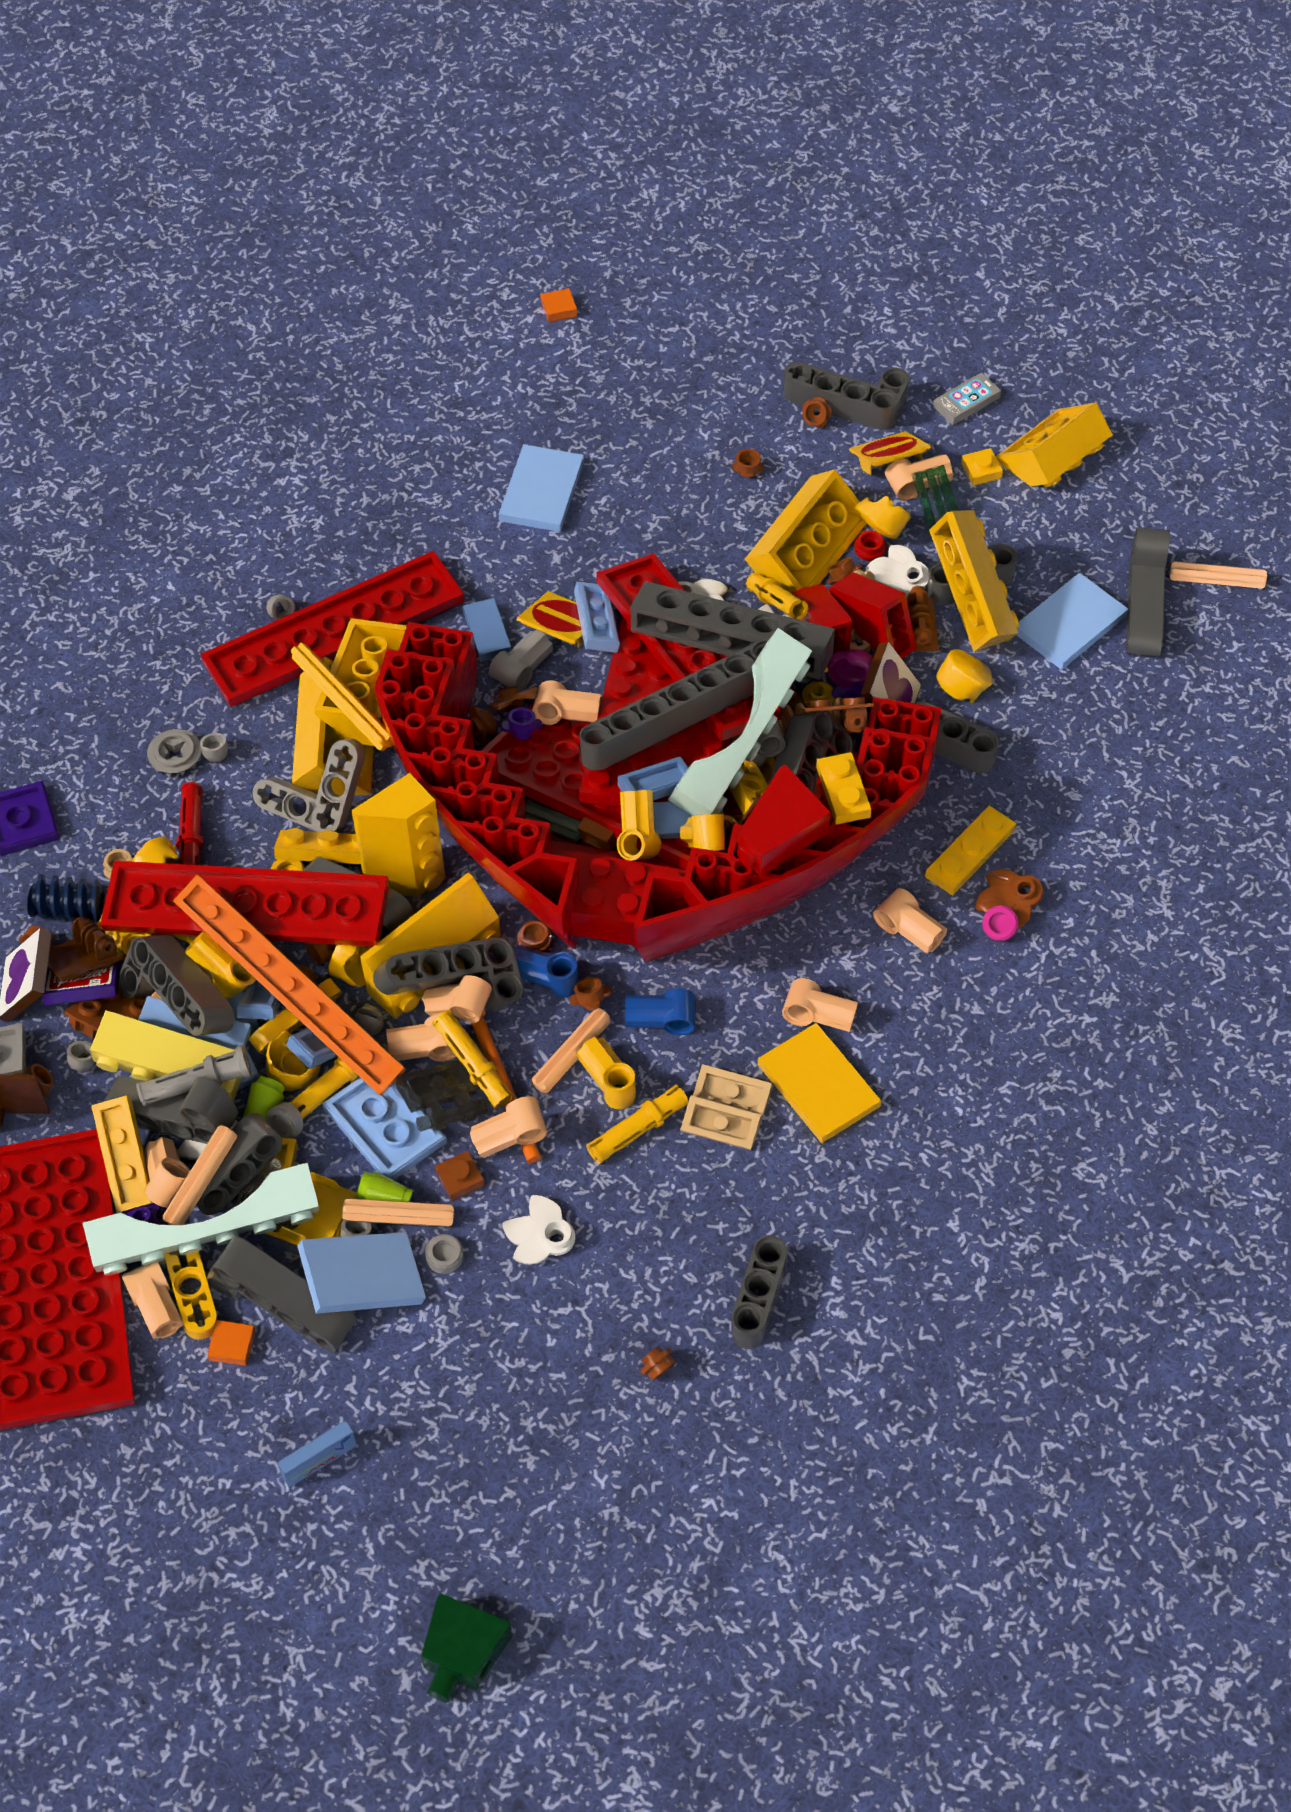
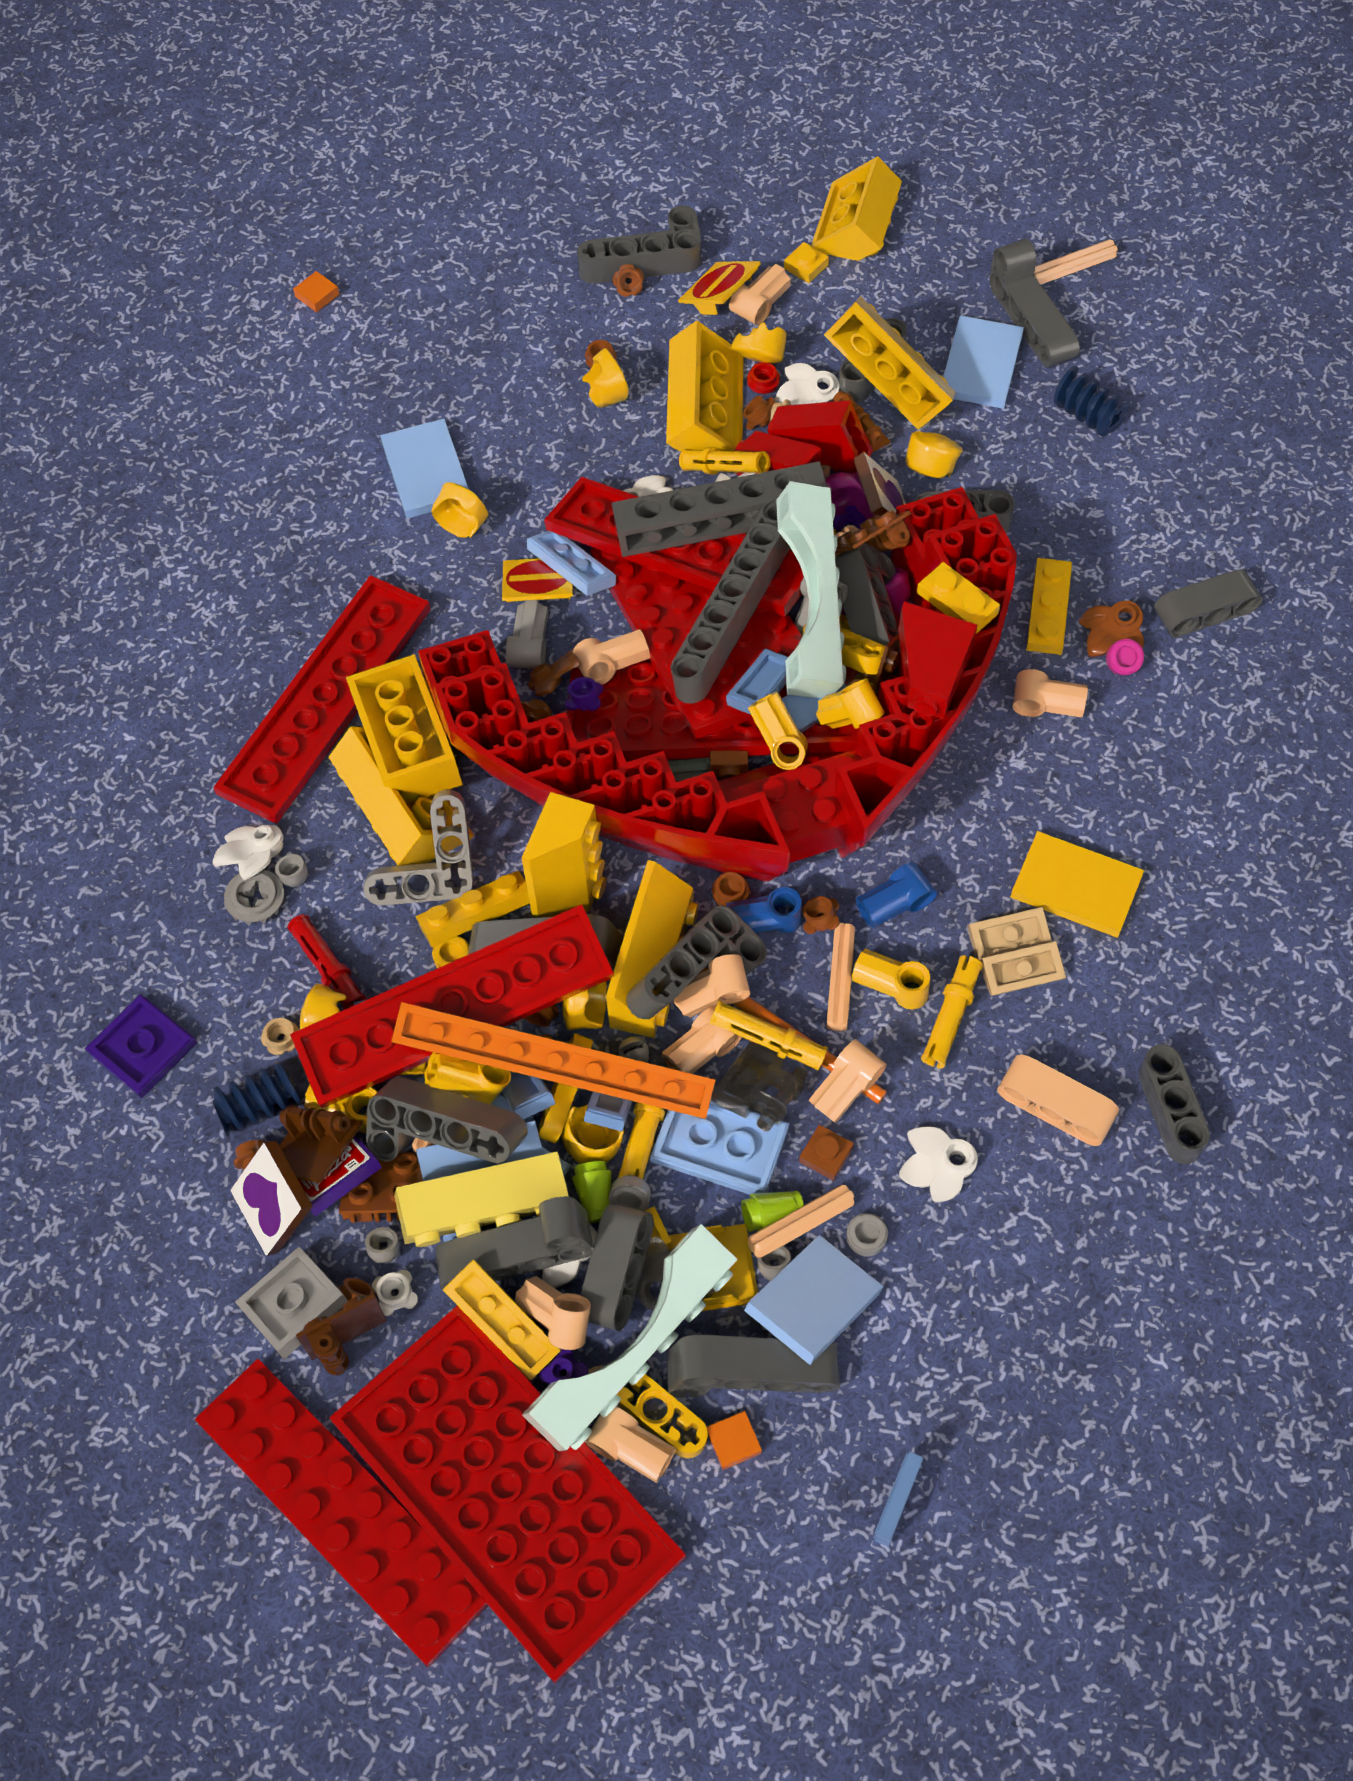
camera: 30 degrees left, 5 degrees up
(67, 1086) = (401, 1281): none -> white plate
(179, 1082) = (543, 1186): light grey pin -> none
(196, 715) = (250, 849): none -> white plate
(200, 1176) = (601, 1298): light nougat axle -> none
(284, 602) = (258, 696): light grey hinge -> none
(341, 696) = (403, 755): yellow axle -> none
(461, 1646) = (1164, 1599): dark green torso -> none
(487, 627) = (465, 618): medium blue tile -> none
(537, 533) = (459, 510): none -> yellow hair
(657, 1362) = (1135, 1222): dark orange plate -> none
(669, 1237) = (1058, 1100): none -> light nougat beam
(734, 485) = (606, 380): none -> yellow hair
(808, 1004) = (1021, 818): light nougat piece -> none
(923, 496) = (799, 306): clear green tile -> none
(967, 398) = (749, 208): light grey tile -> none
(1108, 916) = (1208, 603): none -> dark grey beam
(1134, 698) = (1088, 403): none -> dark blue piece

